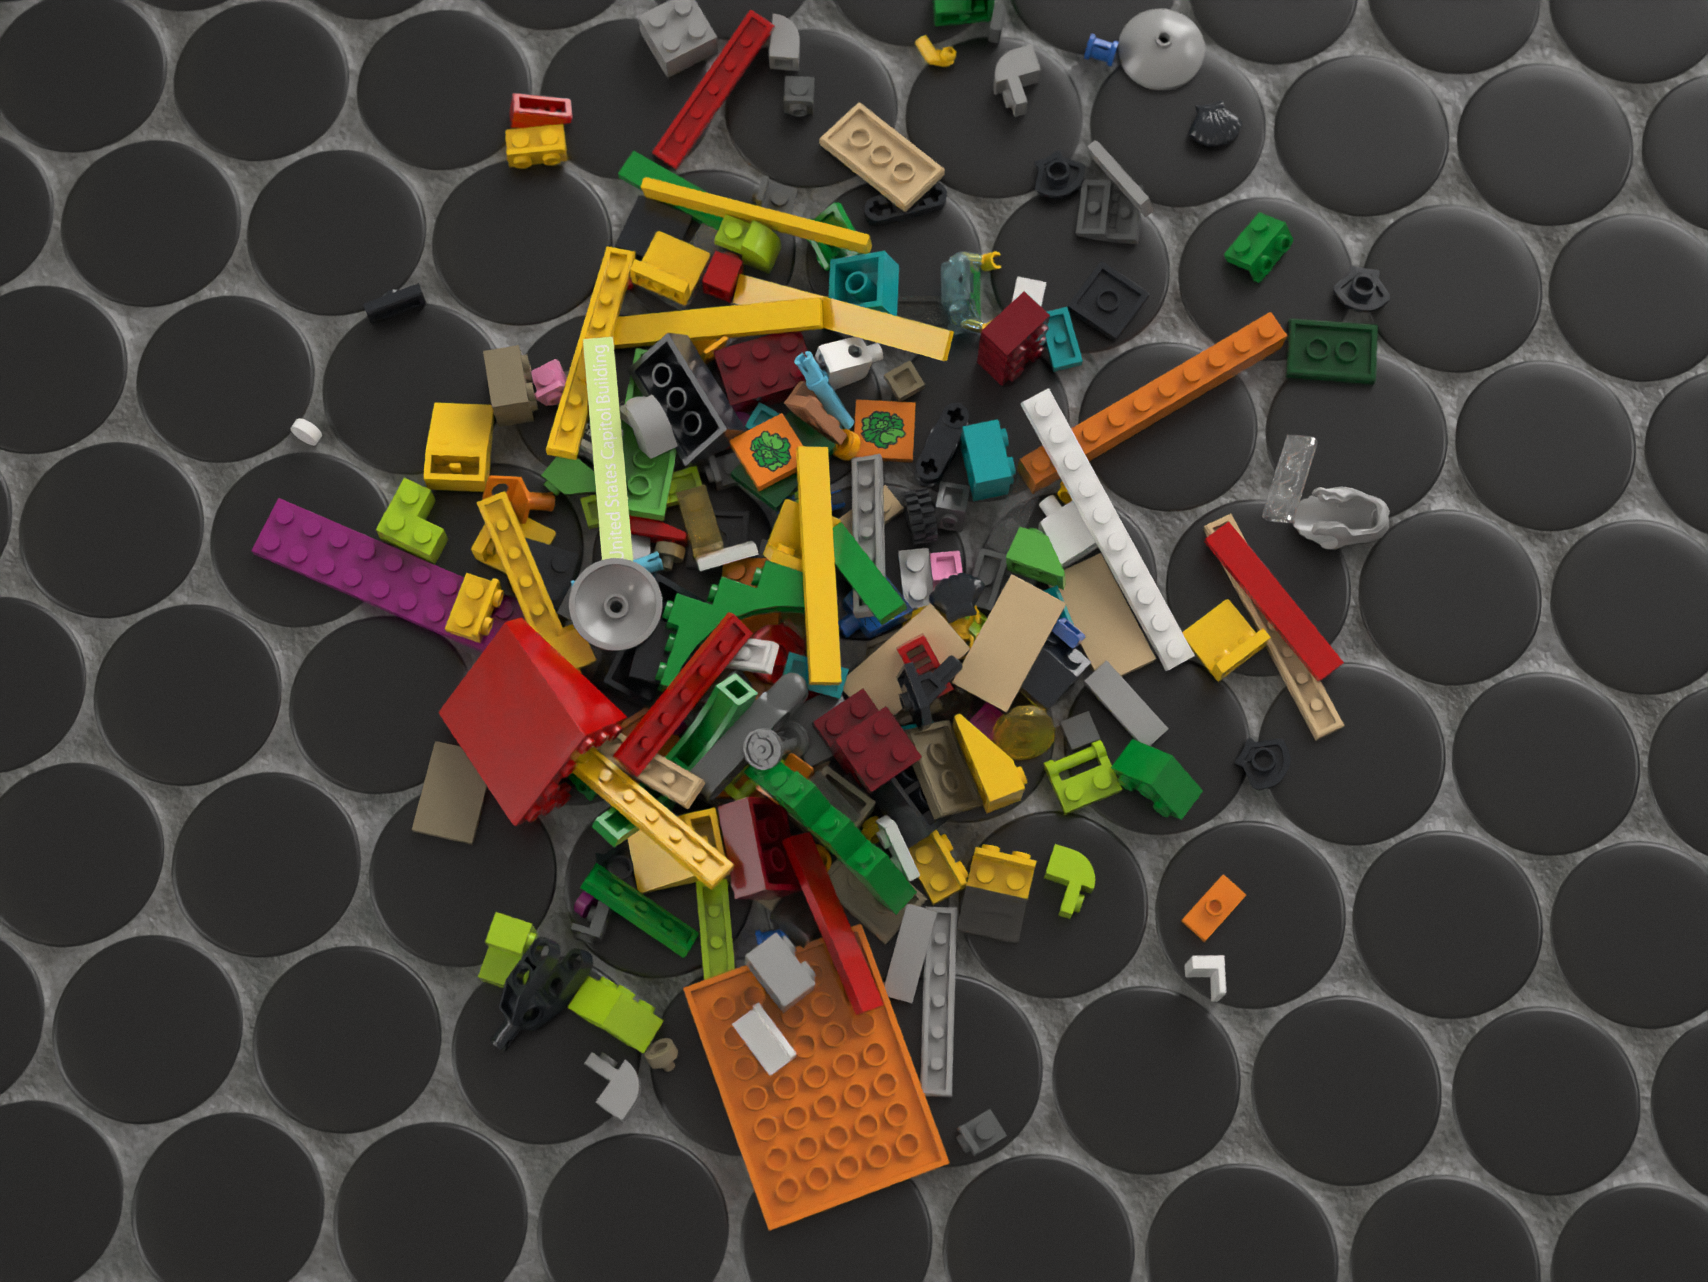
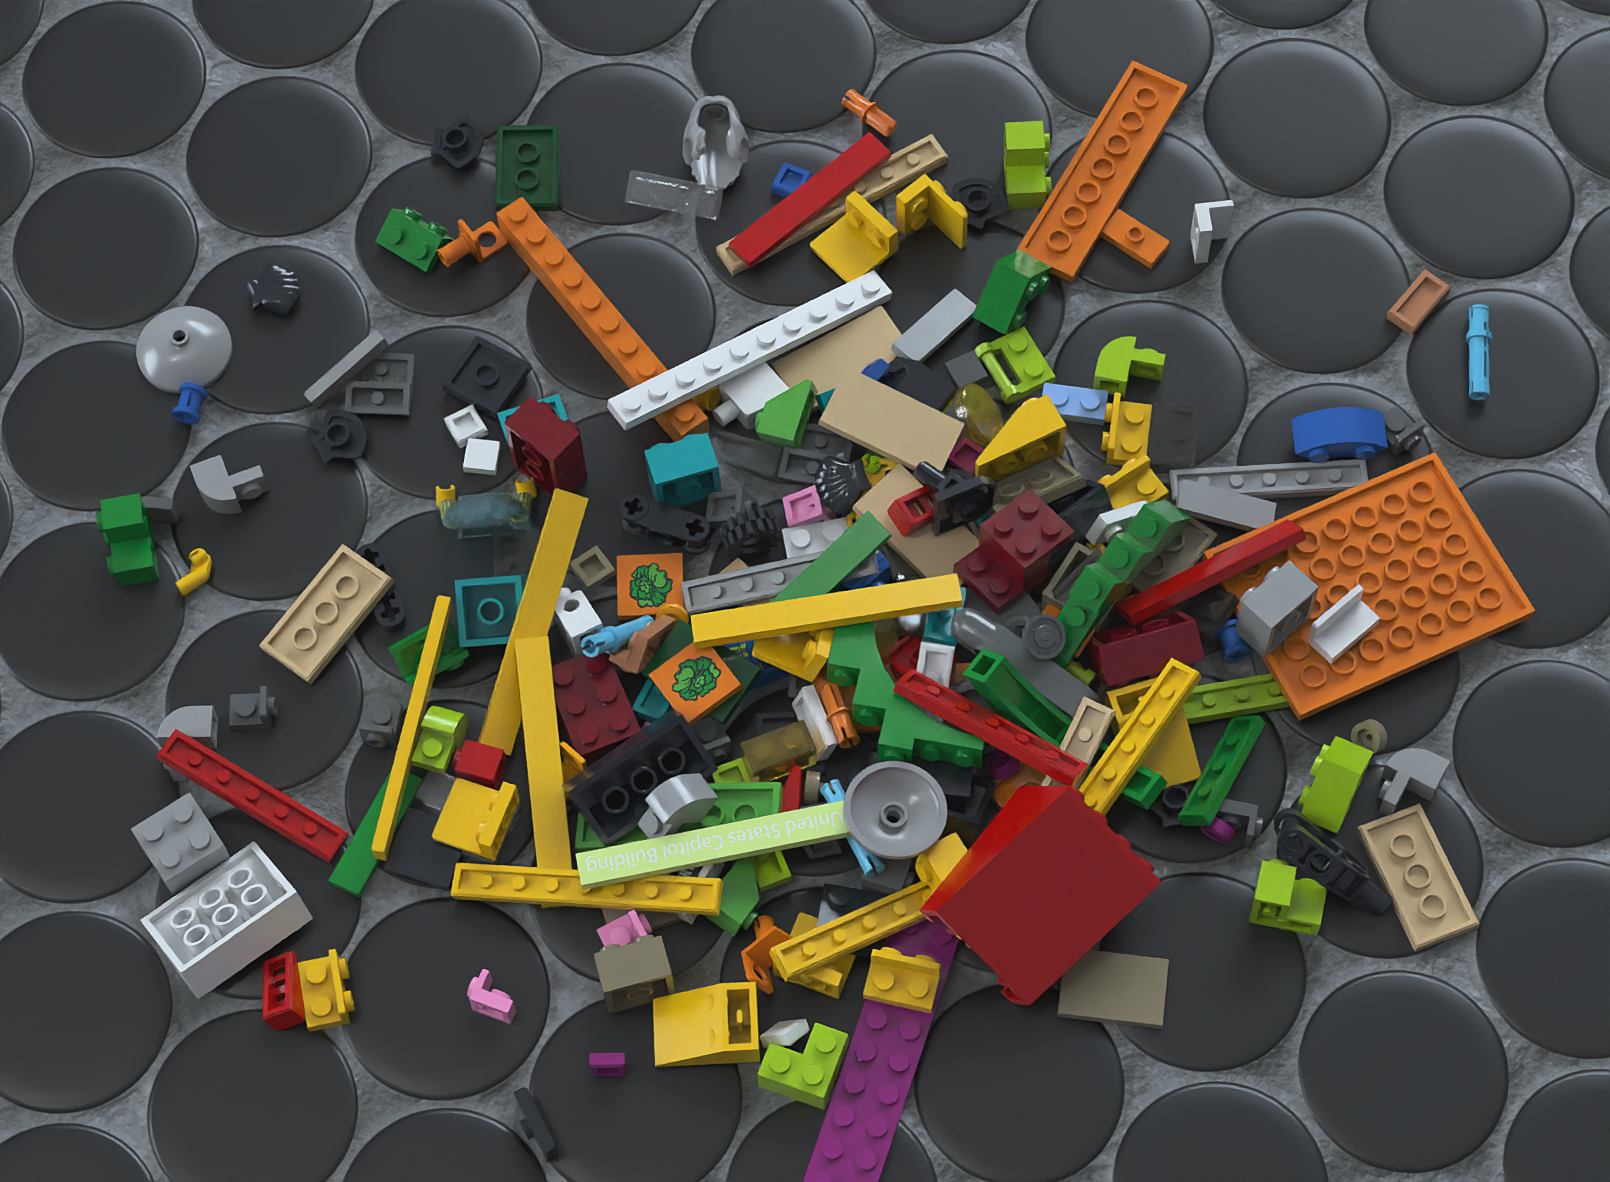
camera: 90 degrees left, 10 degrees down
(438, 363) = (608, 1064): none -> magenta tile
(444, 507) = (785, 1033): none -> white tile
(505, 276) = (493, 1003): none -> bright pink bracket
(523, 1079) = (1417, 877): none -> tan tile
(607, 68) = (226, 919): none -> white slope
(736, 571) = (839, 715): none -> orange axle
(976, 1072) = (1339, 433): none -> blue brick
(1037, 827) = (1078, 403): none -> light blue plate
(1059, 1227) = (1479, 339): none -> medium azure pin
(1061, 283) = (465, 425): none -> white tile
(1122, 1177) = (1418, 302): none -> nougat tile
(1248, 291) = (469, 243): none -> orange bracket
(1254, 696) = (929, 200): none -> yellow bracket
(1292, 885) = (1103, 170): none -> orange plate
(1297, 807) = (1024, 164): none -> lime brick
(1301, 589) = (789, 179): none -> blue tile
(1371, 667) = (869, 113): none -> orange axle

